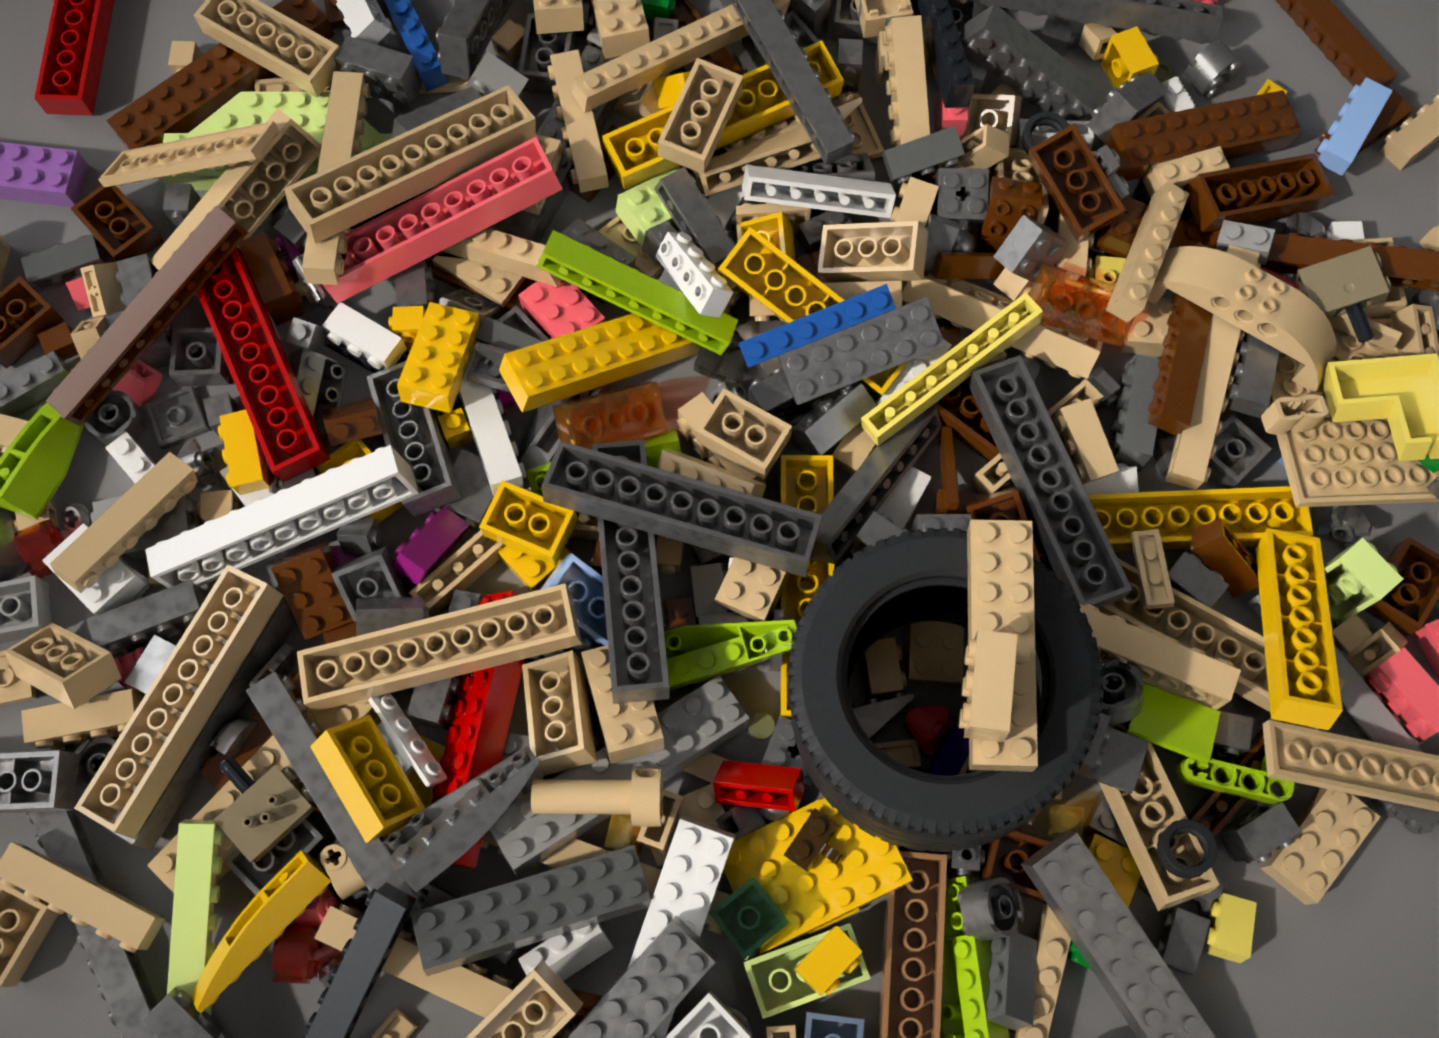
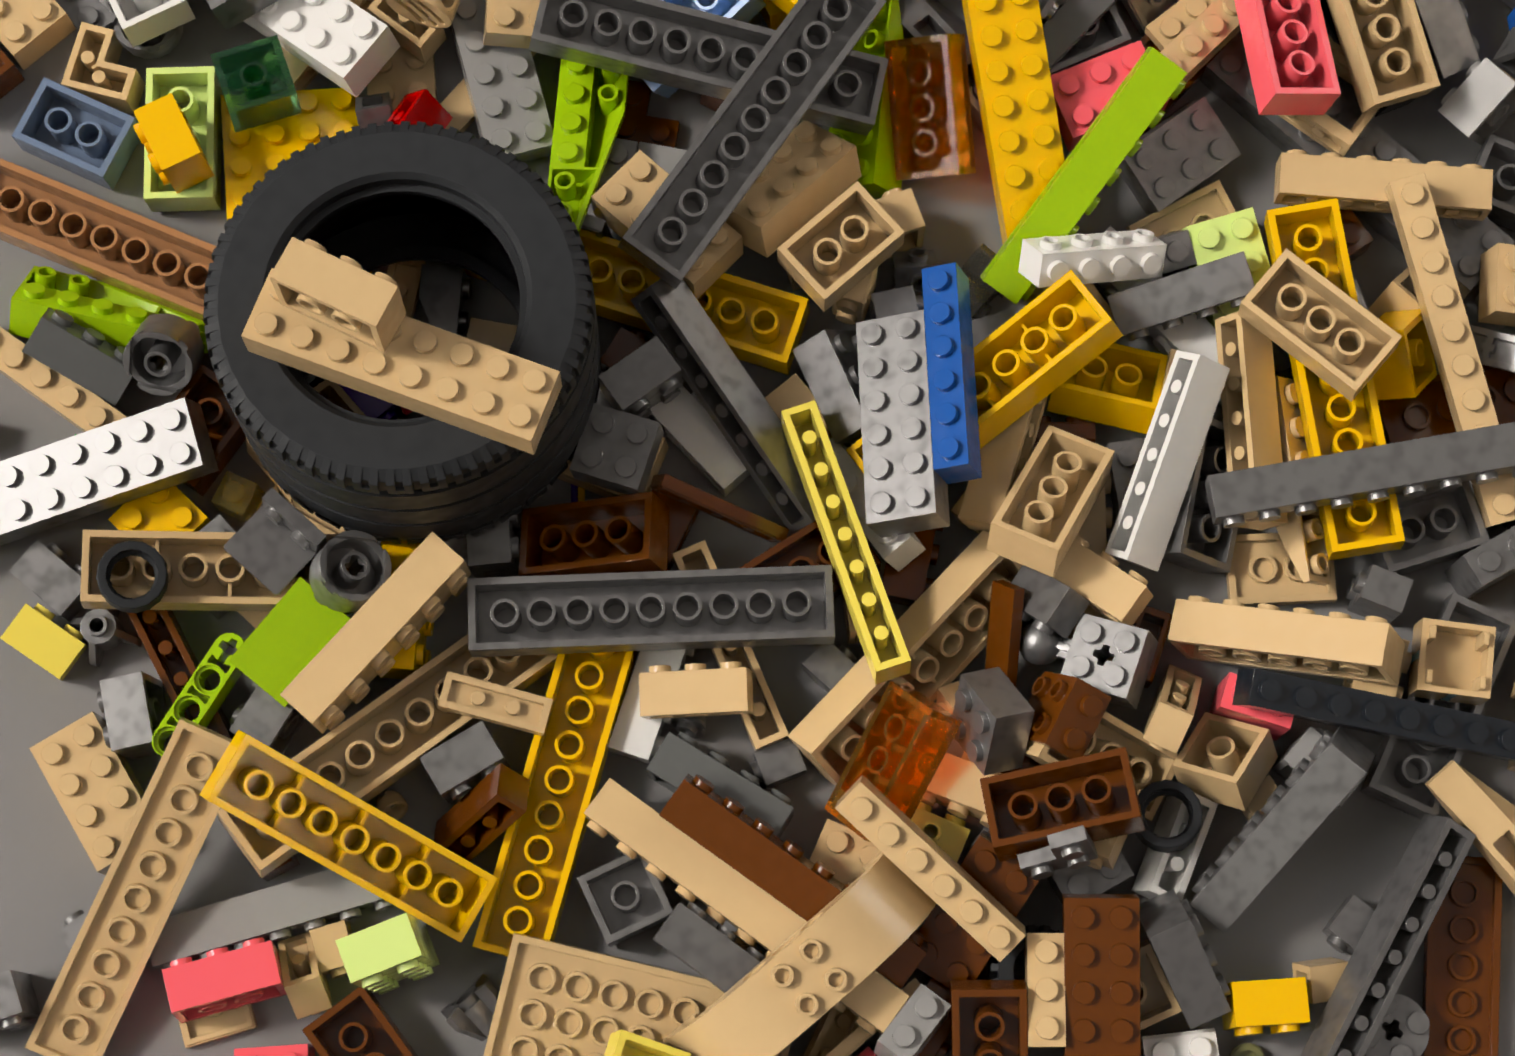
camera: 110 degrees right, 5 degrees up
(923, 154) = (1181, 622): dark grey brick -> none
(1294, 414) = (630, 982): tan brick -> none

